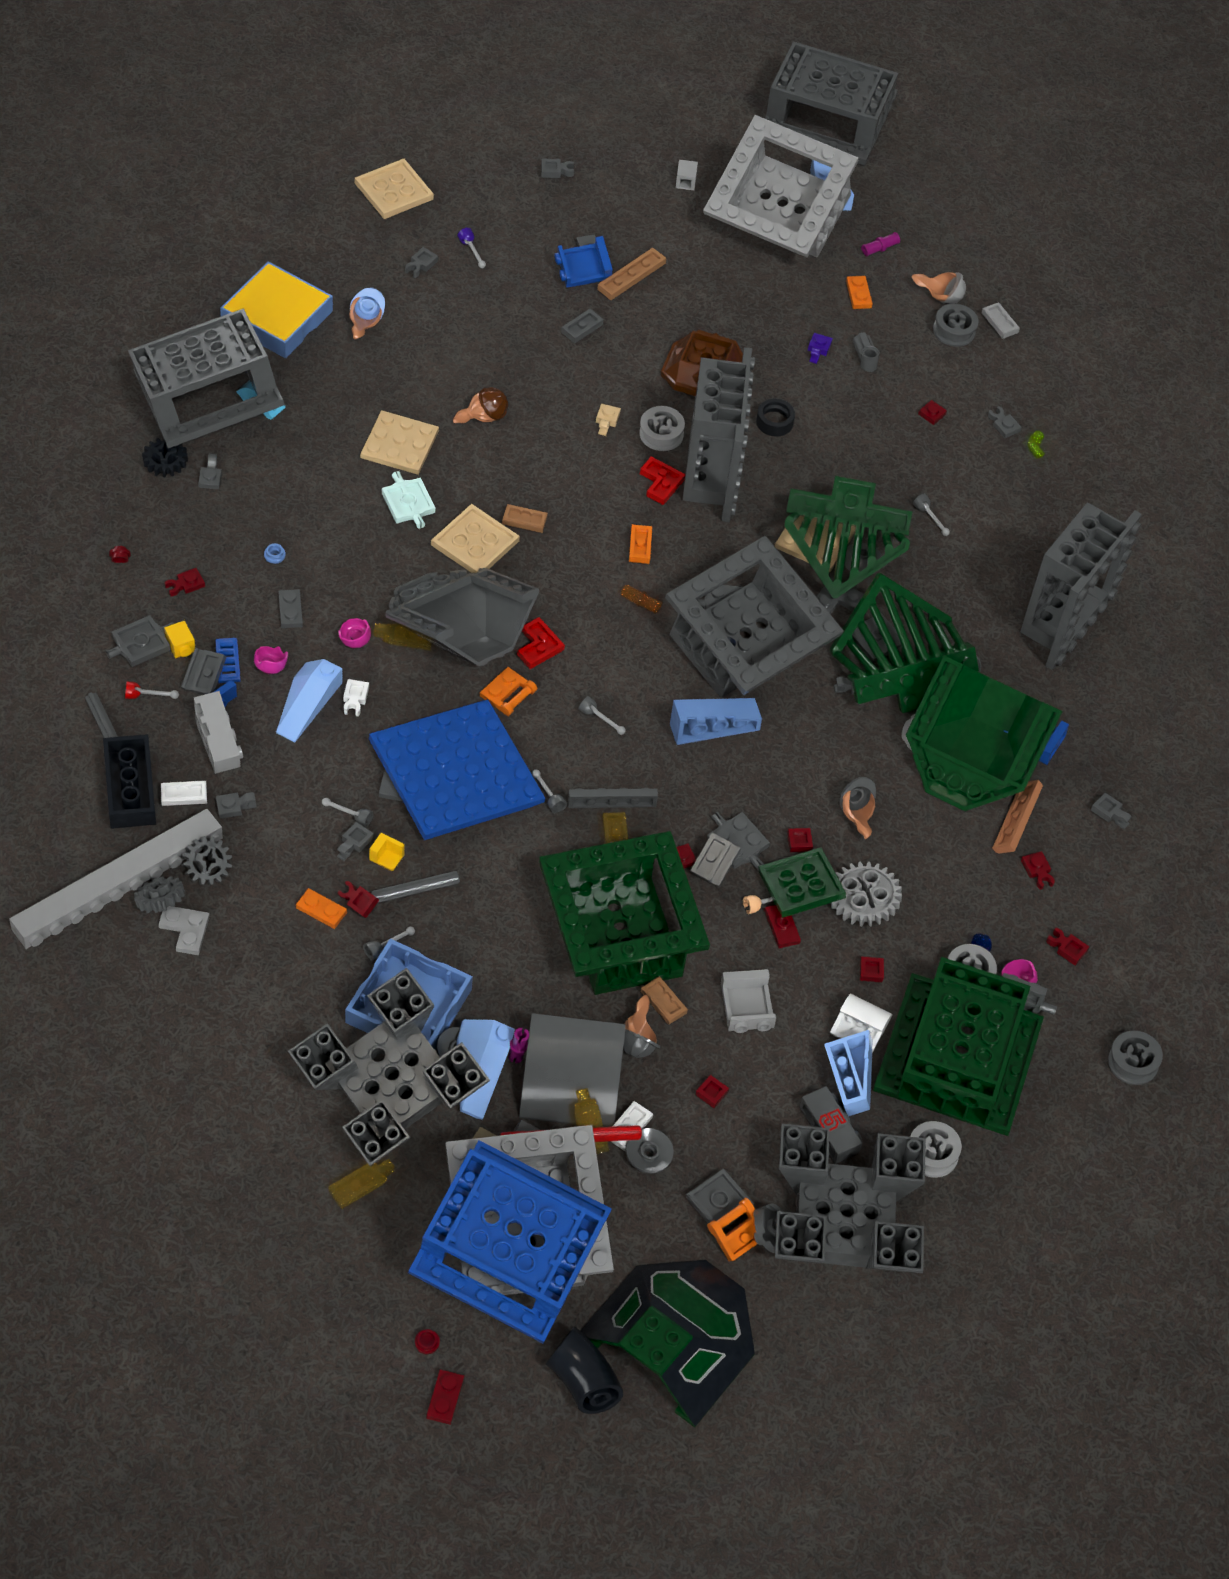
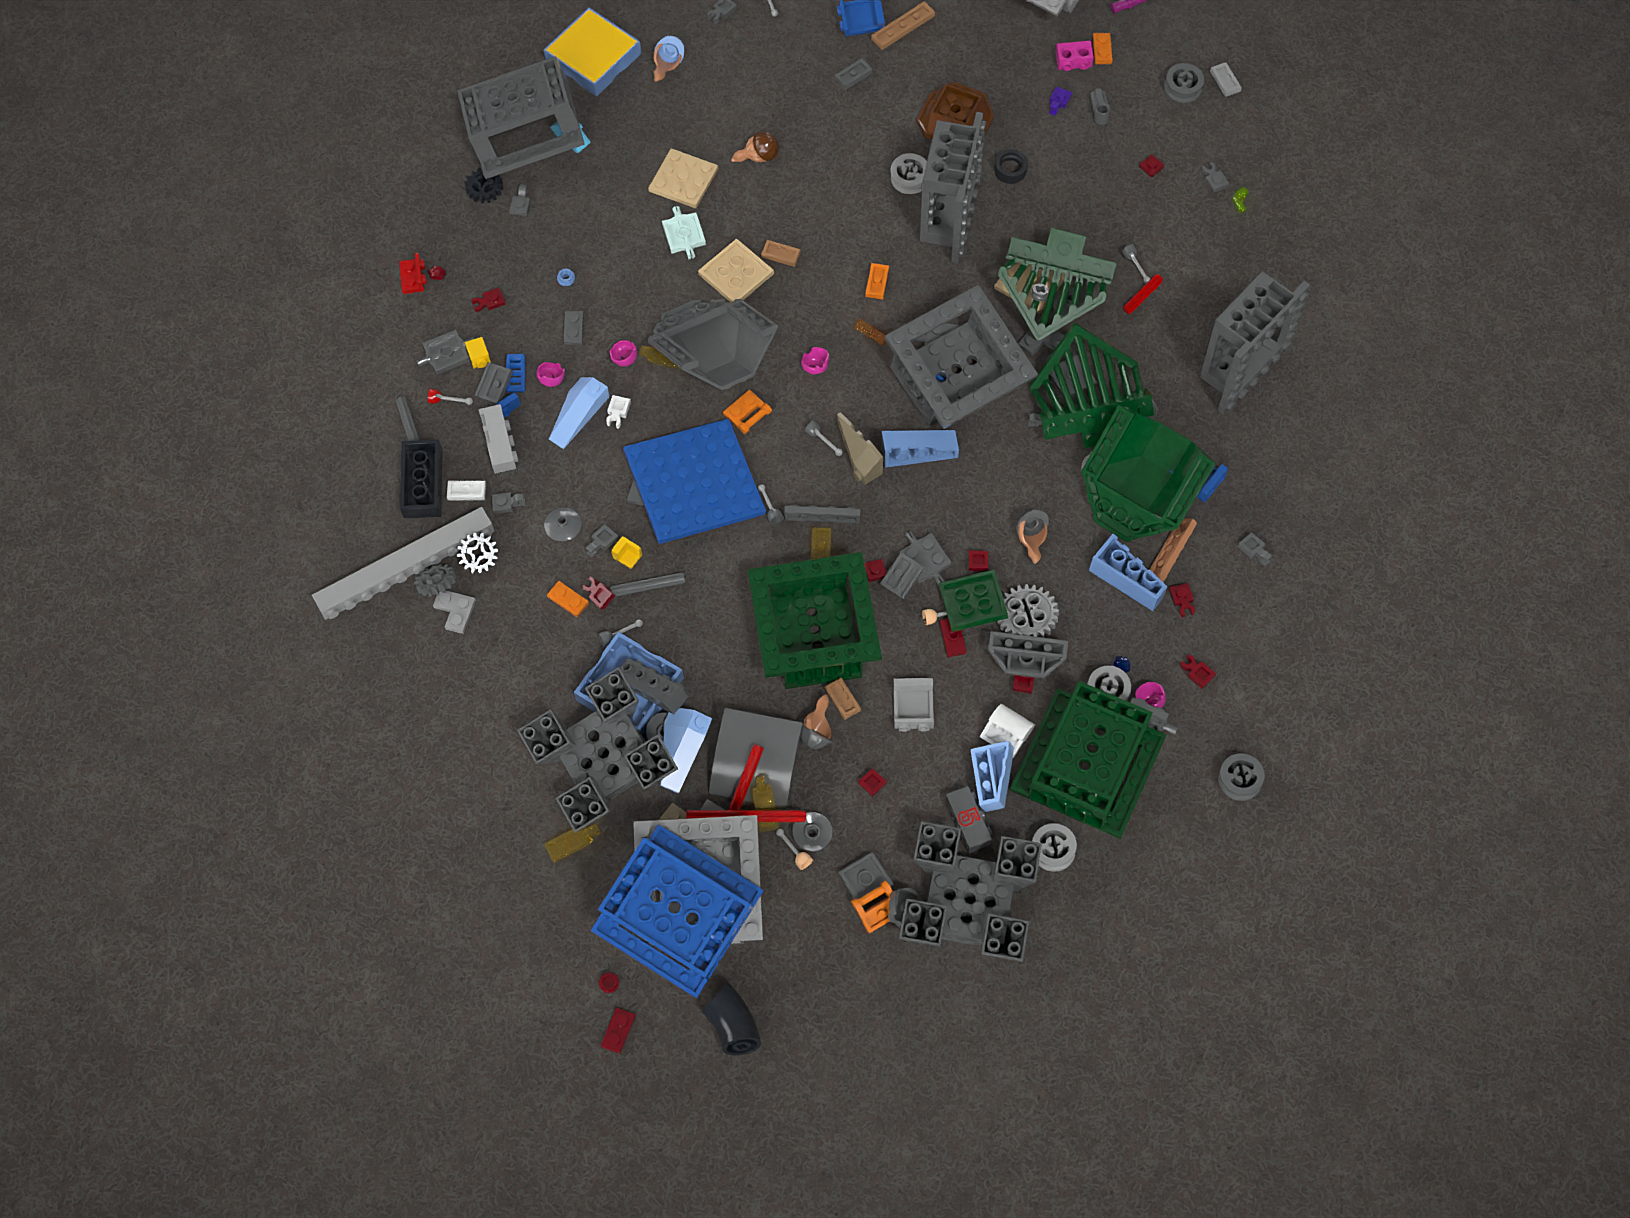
camera: 15 degrees right, 10 degrees up
(89, 558) = (411, 275): none -> red bracket
(304, 833) = (564, 531): none -> dark grey dish
(360, 815) = (609, 518): hinge -> none
(451, 997) = (654, 687): none -> dark grey brick
(518, 1045) = (712, 732): magenta pin -> none
(543, 643) = (782, 371): red plate -> none
(566, 1091) = (746, 777): none -> red axle
(582, 631) = (817, 357): none -> dark pink hair
(607, 417) = (864, 160): tan plate -> none
(633, 1116) = (803, 801): white plate -> none
(641, 1183) = (802, 859): none -> light nougat hinge
(652, 730) = (863, 455): none -> dark tan wedge
(665, 479) = (906, 219): red plate -> none
(682, 1325) = (816, 989): windscreen -> none
(829, 299) = (1074, 55): none -> dark pink brick
(831, 545) = (1039, 292): none -> dark grey bush
(873, 936) = (1027, 654): none -> dark grey wedge
(943, 546) = (1142, 294): none -> red axle
(944, 287) = (1179, 46): piece -> none
(974, 844) = (1126, 573): none -> medium blue wedge

